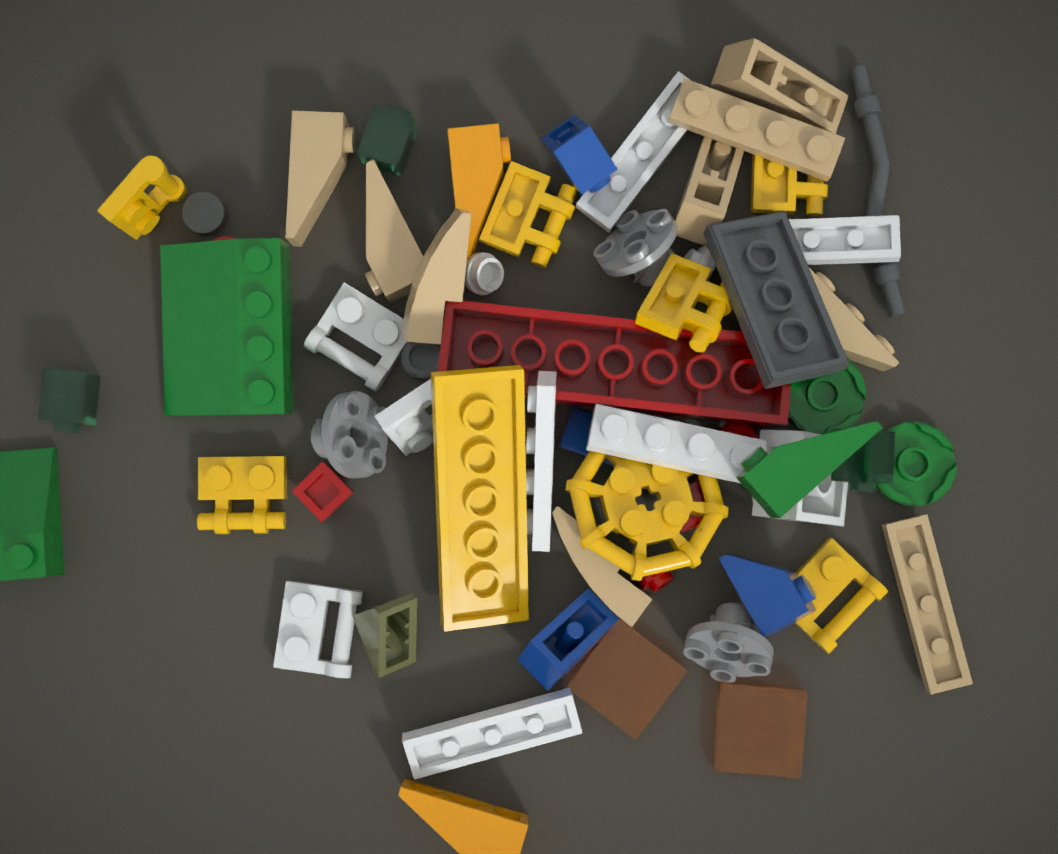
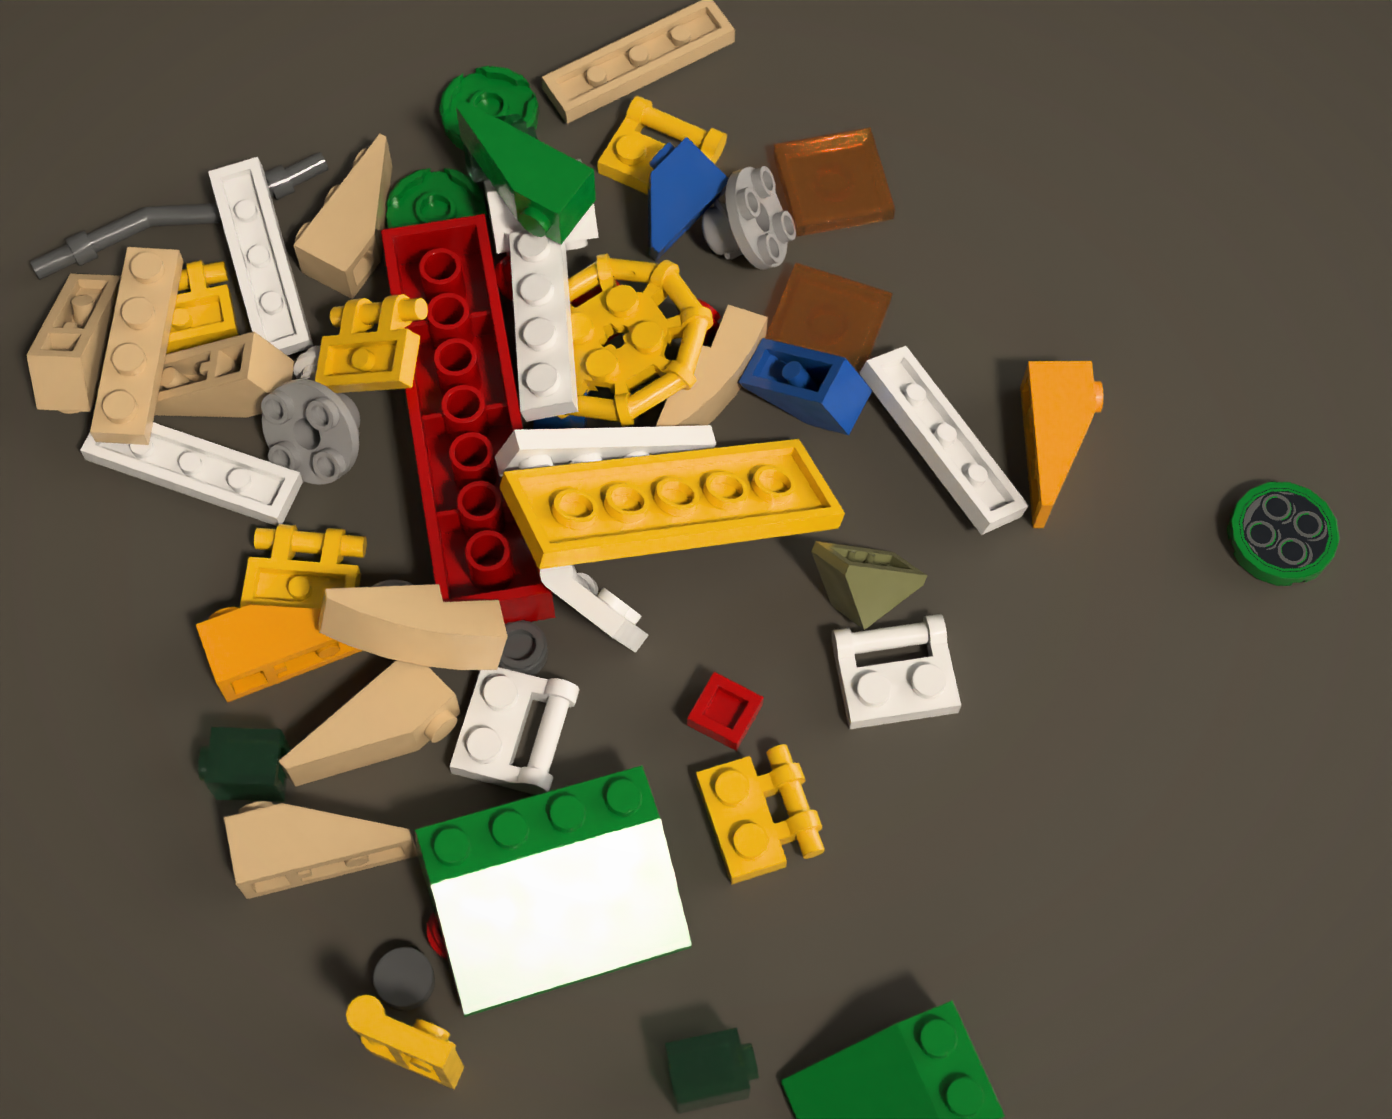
camera: 110 degrees left, 20 degrees down
(351, 435) = (645, 692): light grey plate -> none
(580, 155) = (211, 525): blue slope -> none
(775, 299) = (340, 257): dark grey plate -> none

